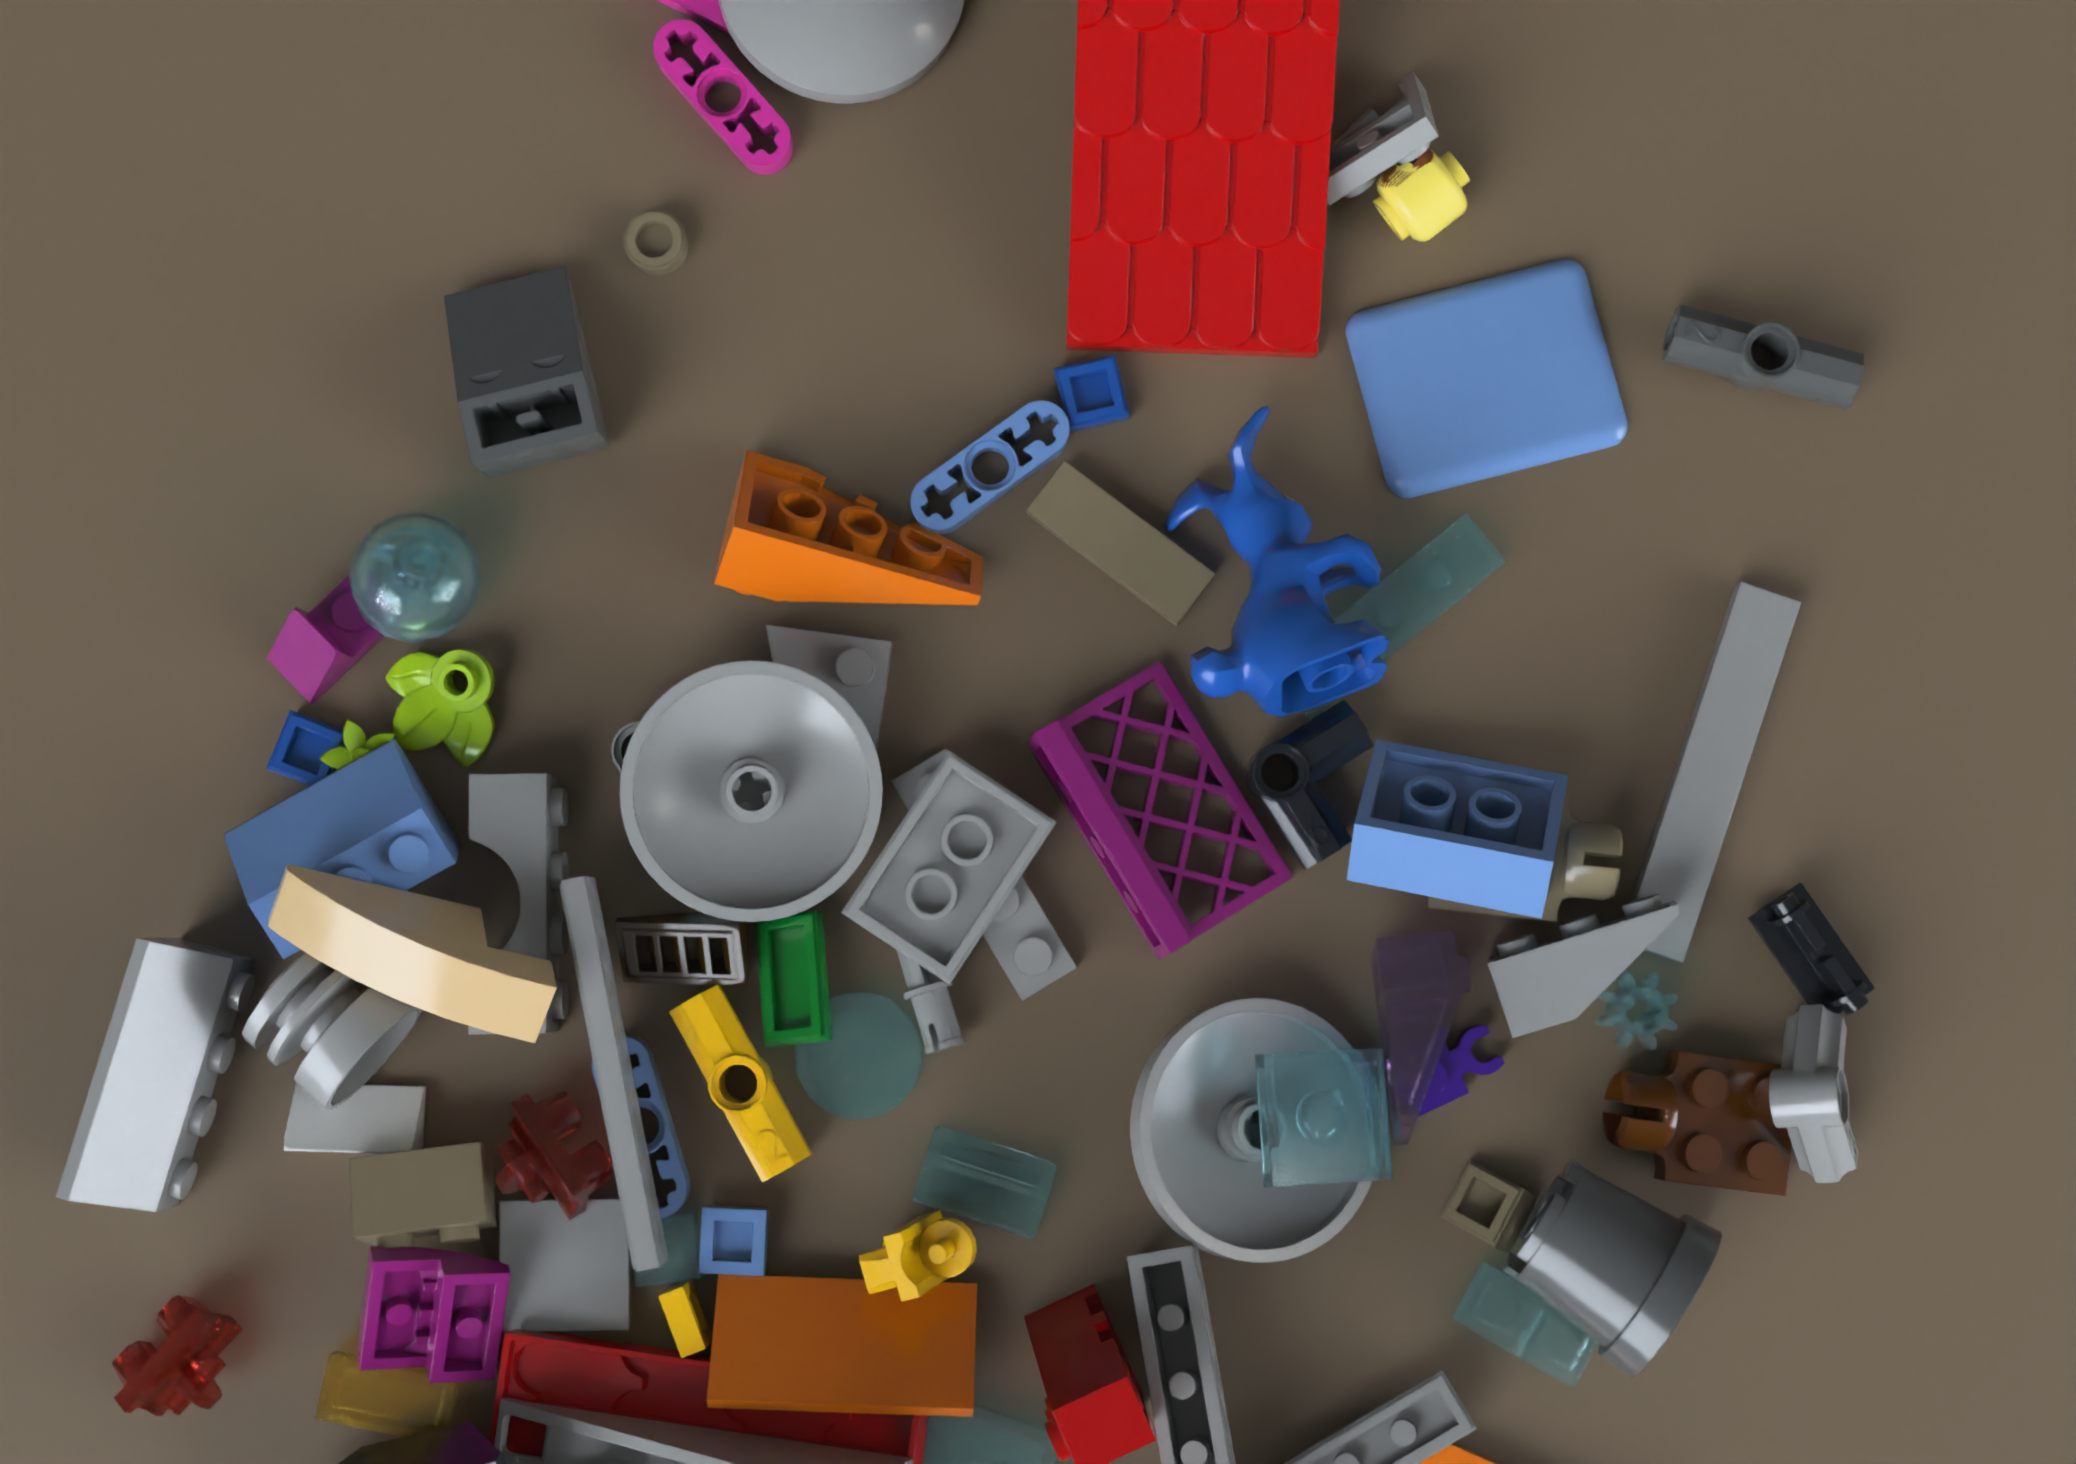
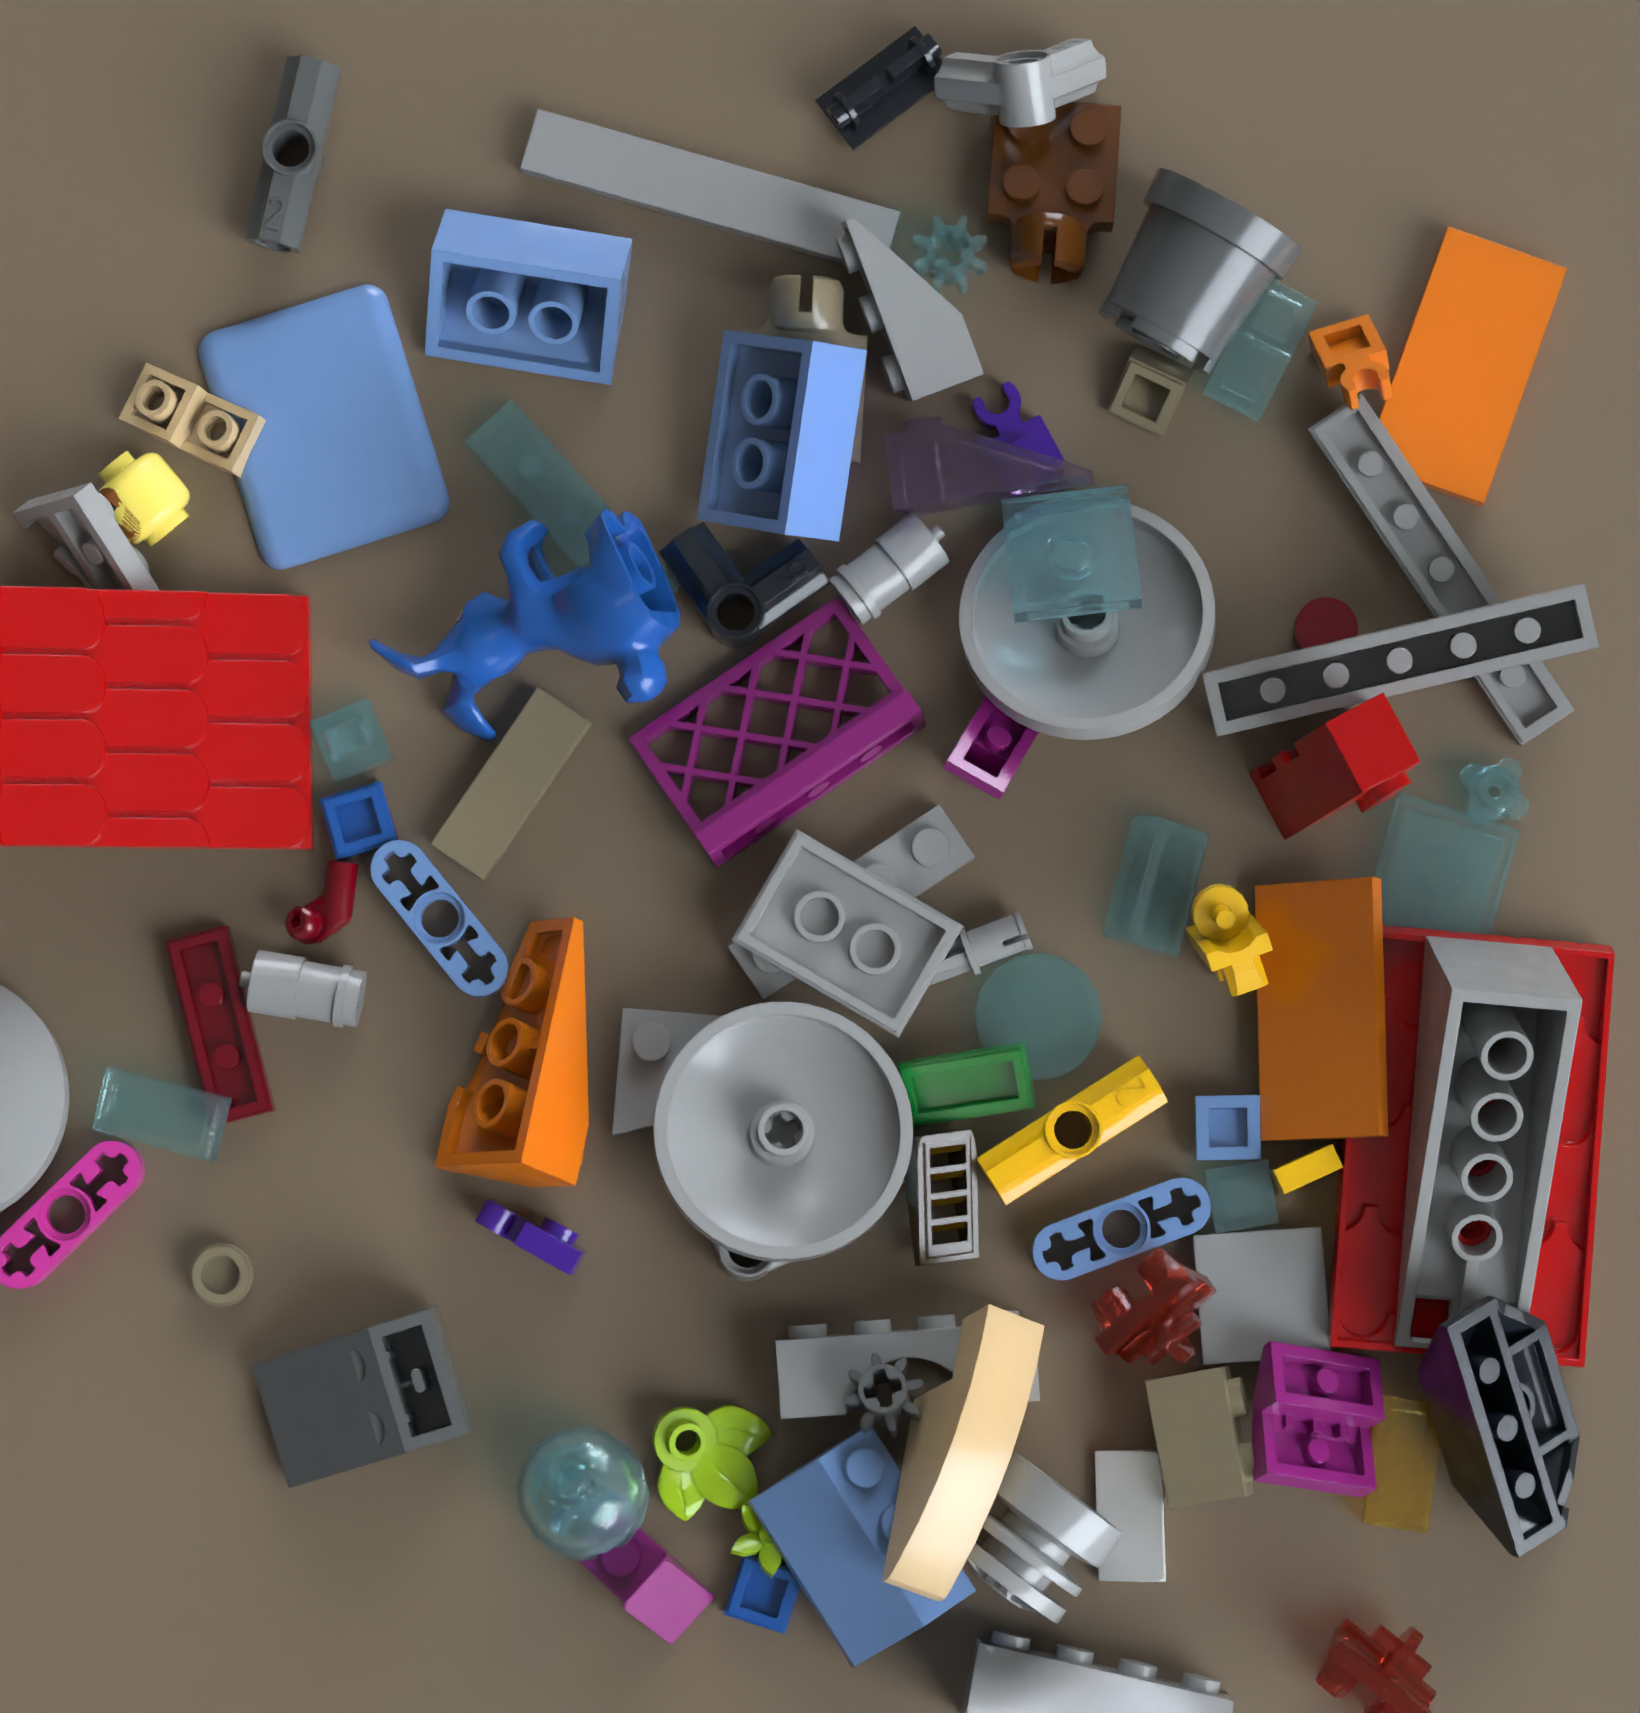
camera: 90 degrees left, 0 degrees up
(491, 862) = (867, 1390): none -> dark grey gear
(614, 1073) = (1068, 1252): light grey tile -> none
(663, 553) = (549, 1241): none -> dark purple plate
(813, 189) = (161, 1113): none -> clear light blue tile
(897, 250) = (218, 1021): none -> dark red tile
(926, 332) = (304, 989): none -> light grey piece
(1003, 359) = (330, 910): none -> dark red arm
(1125, 1022) = (990, 750): none -> magenta slope
(1172, 390) = (352, 740): none -> clear light blue tile
(1241, 1372) = (1324, 622): none -> dark red tile
(1320, 934) = (889, 568): none -> light grey piece
(1498, 248) = (191, 419): none -> tan slope
(1516, 1420) = (1352, 356): none -> orange plate
(1610, 581) = (527, 296): none -> medium blue slope

